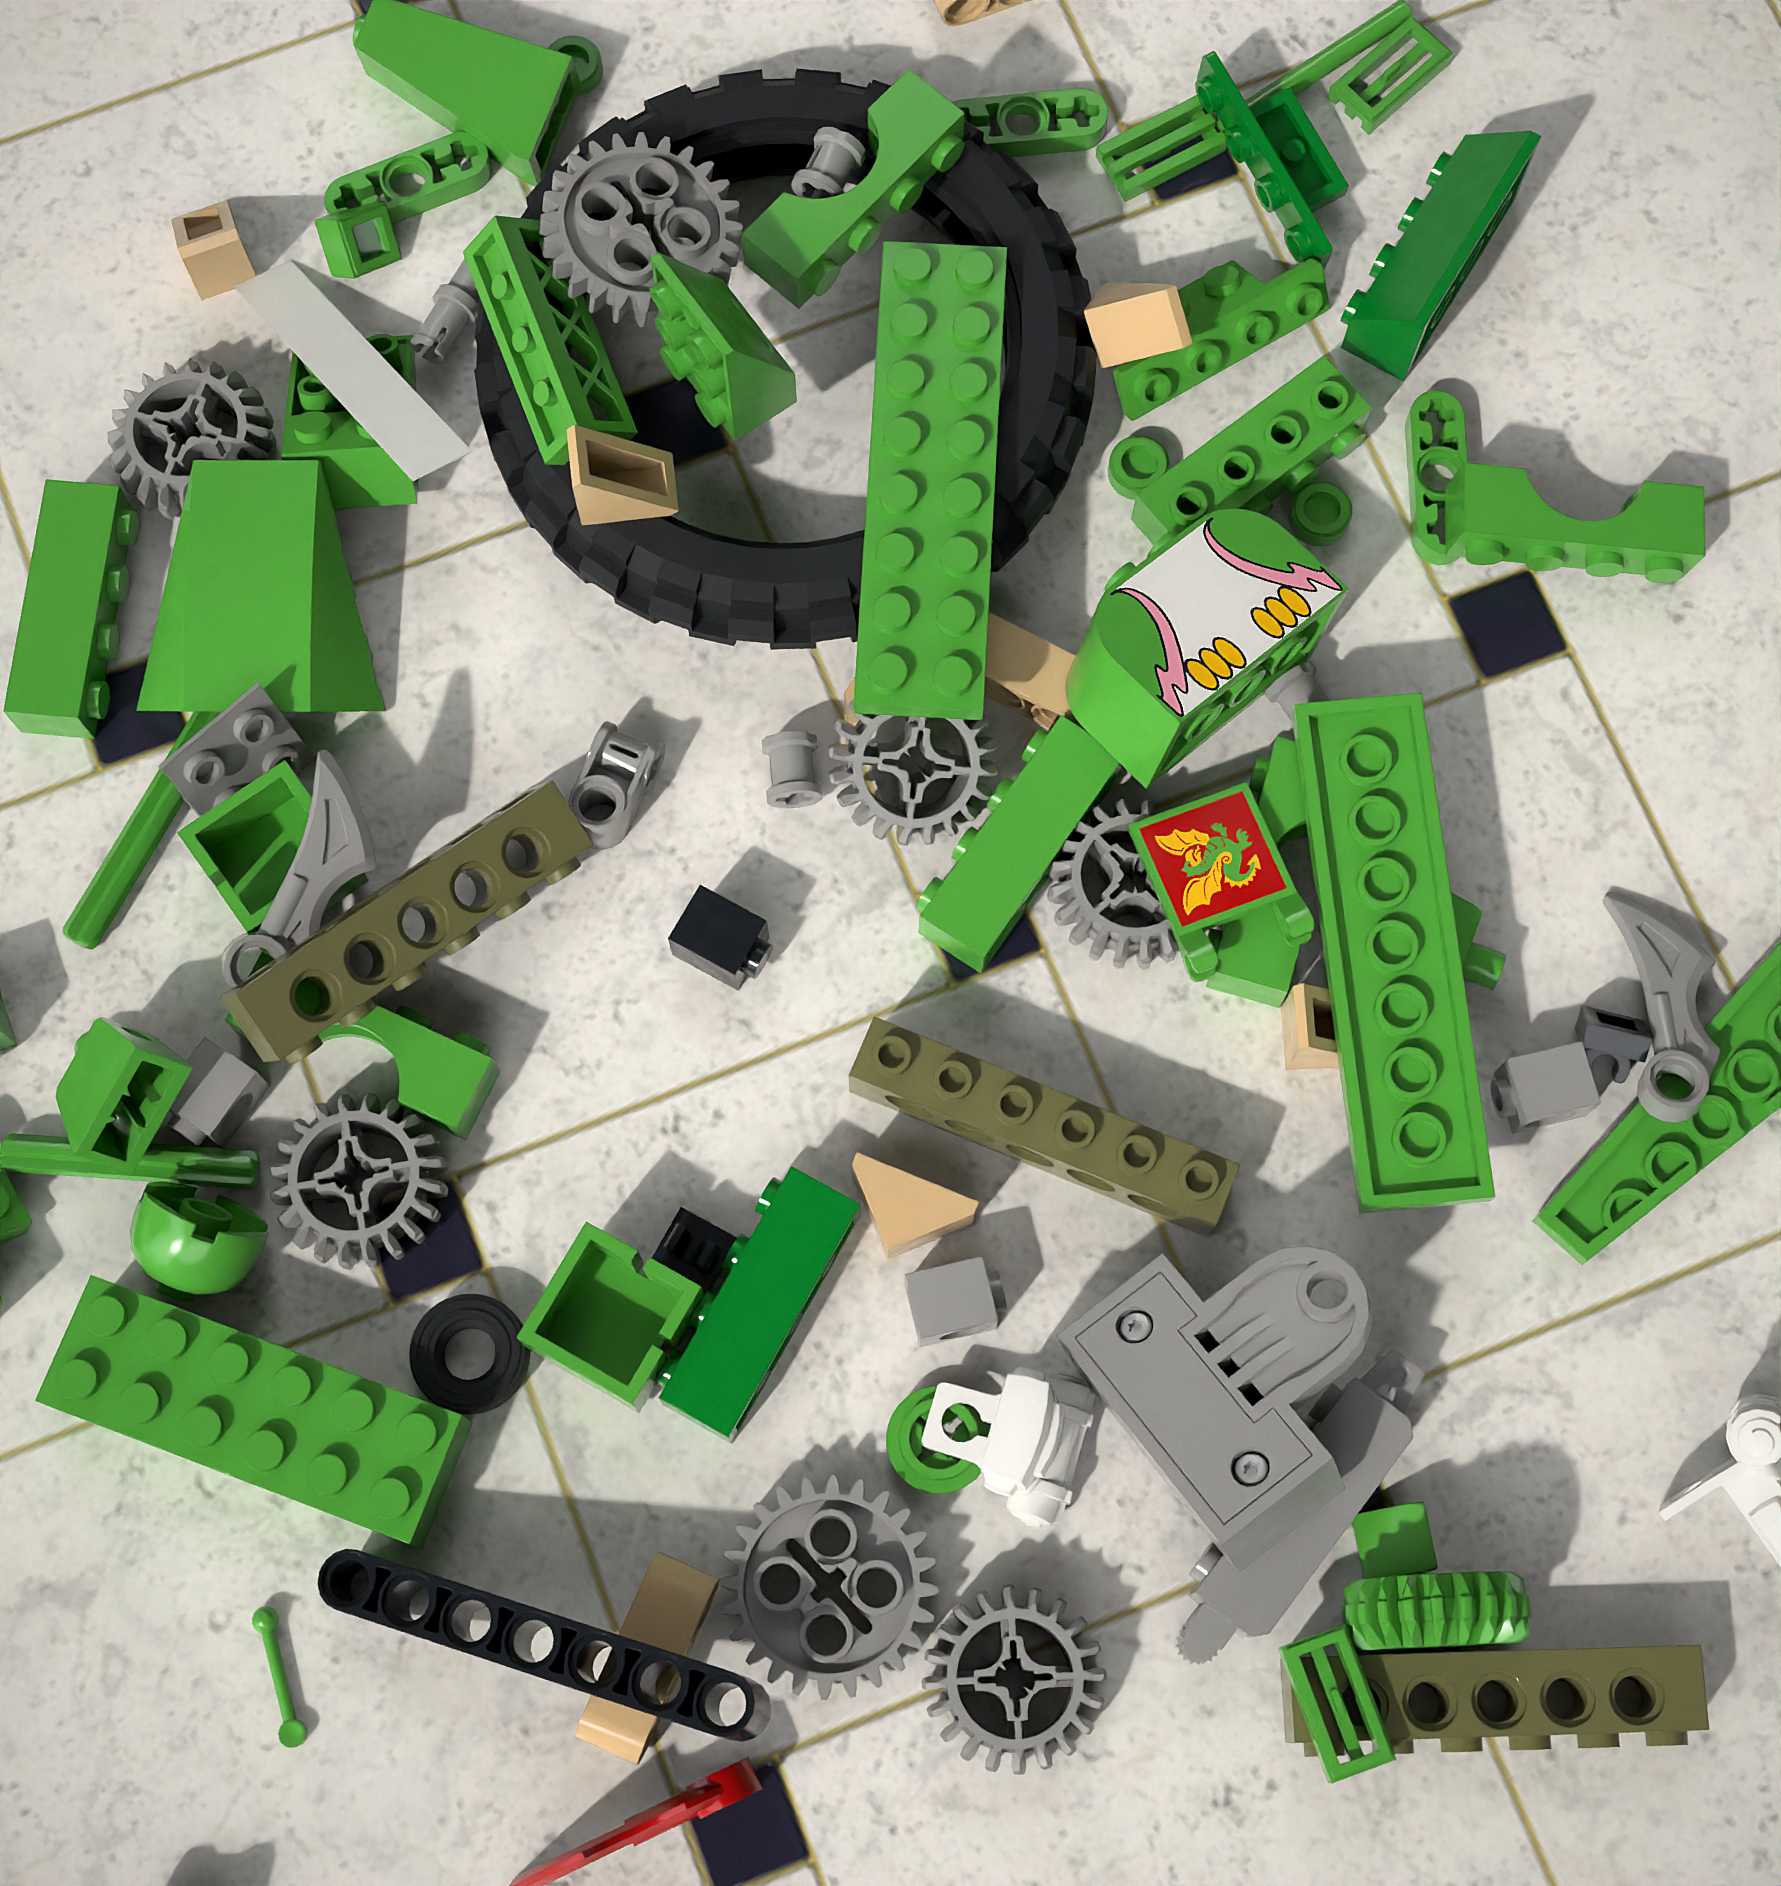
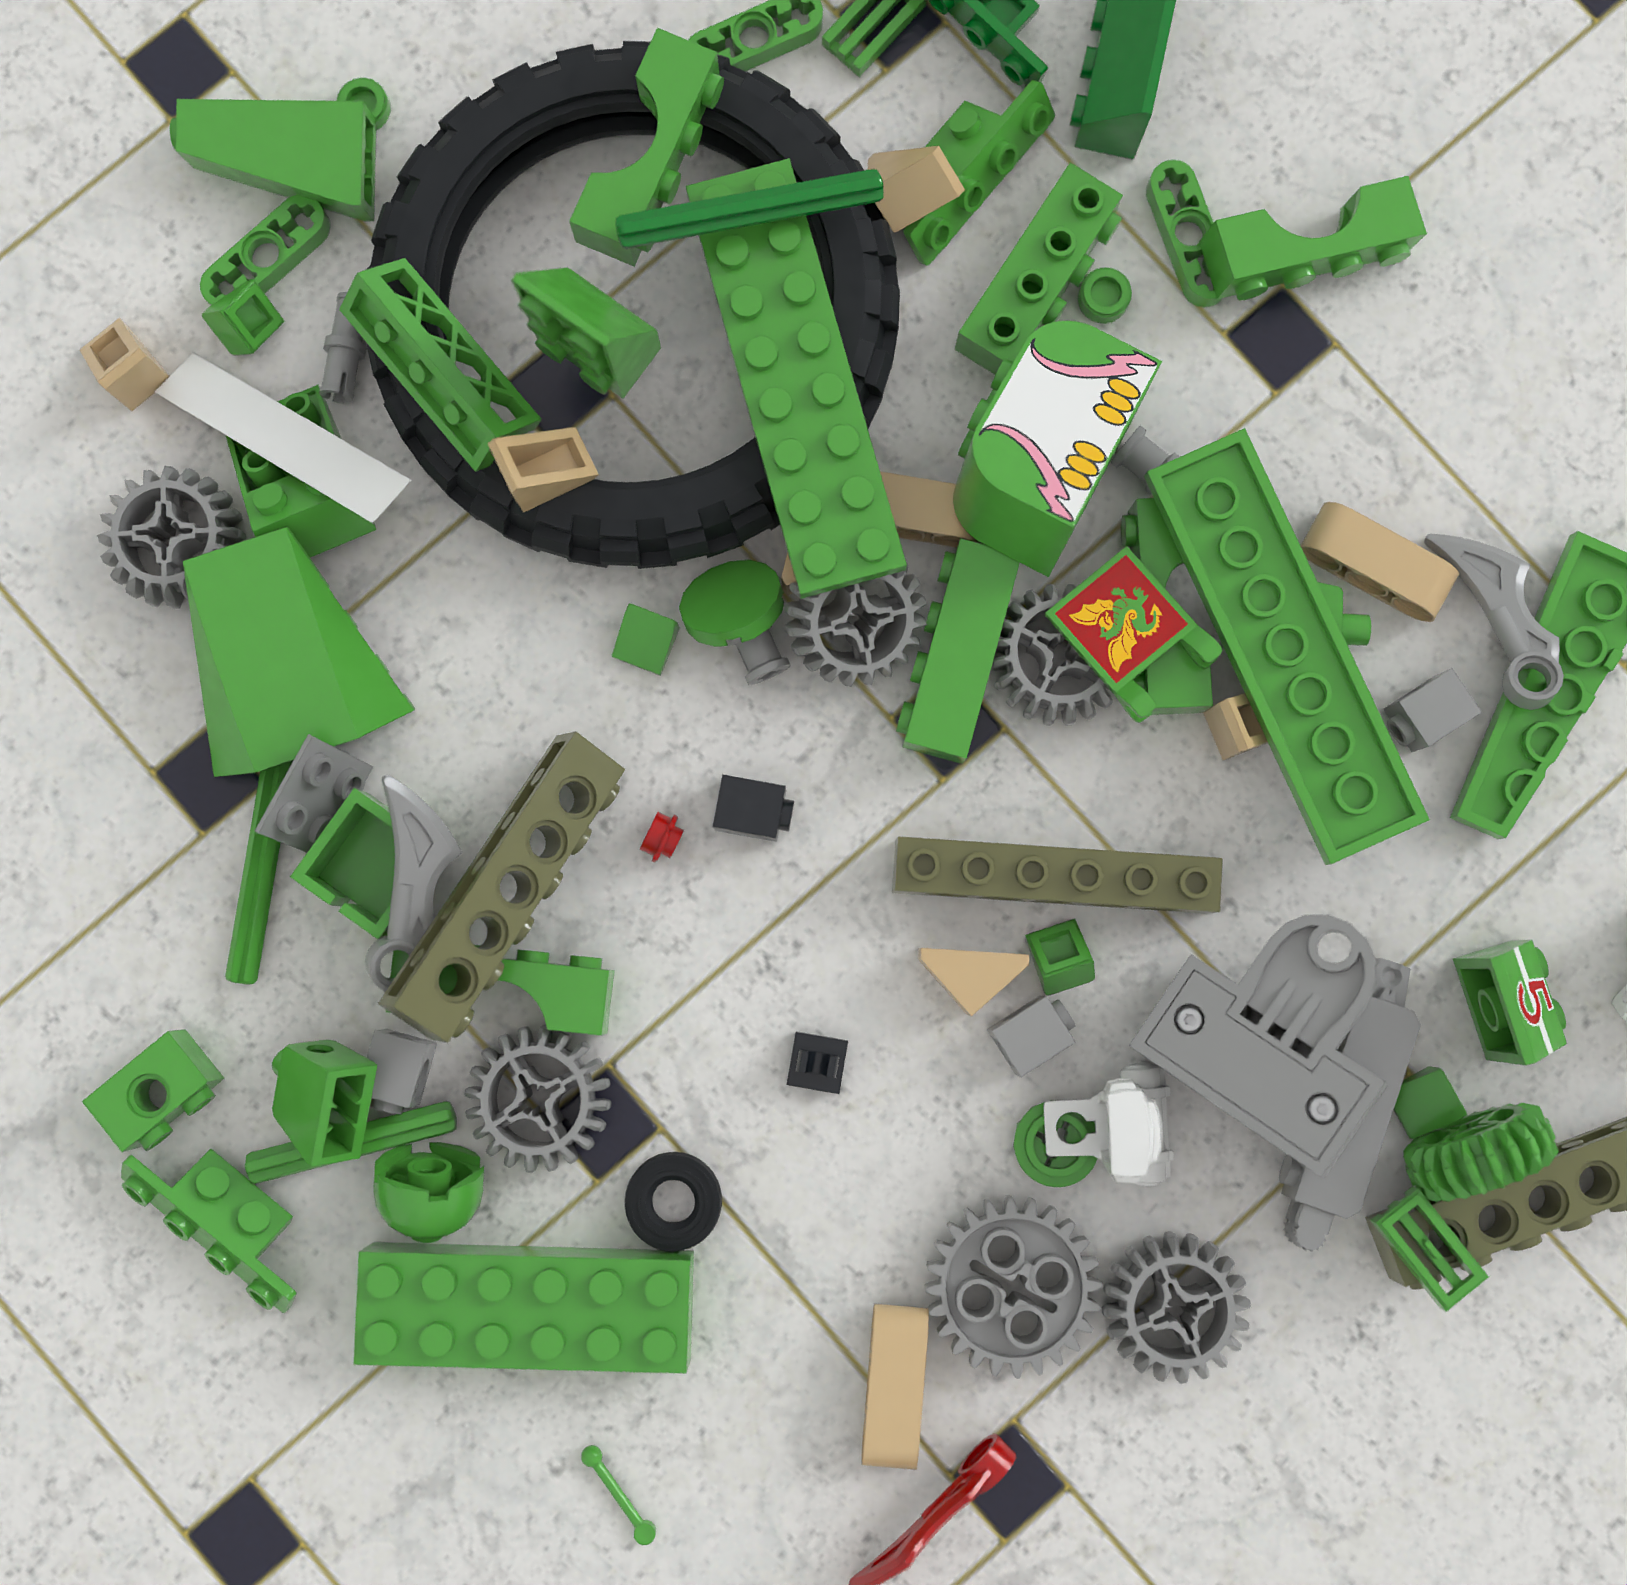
camera: 20 degrees left, 10 degrees up
(71, 609) = (128, 712): bright green brick -> none
(573, 1648) = (841, 1403): black beam -> none
(594, 248) = (449, 272): light grey gear -> none
(608, 937) = (662, 837): none -> red plate
(609, 1319) = (775, 1141): bright green piece -> none
(618, 775) = (621, 701): light grey piece -> none
(671, 715) = (645, 639): none -> bright green slope
(759, 1304) = (884, 1089): green brick -> none
(780, 703) = (732, 602): none -> bright green tile
(830, 164) = (617, 135): light grey bush -> none
(942, 280) = (749, 208): none -> green axle
(1019, 1229) = (1061, 957): none -> bright green slope
(1136, 464) = (946, 304): bright green tile -> none
(1535, 1450) = (1512, 1002): none -> bright green slope
(1539, 901) = (1379, 561): none -> tan beam
(1614, 1036) = (1470, 651): black tile -> none

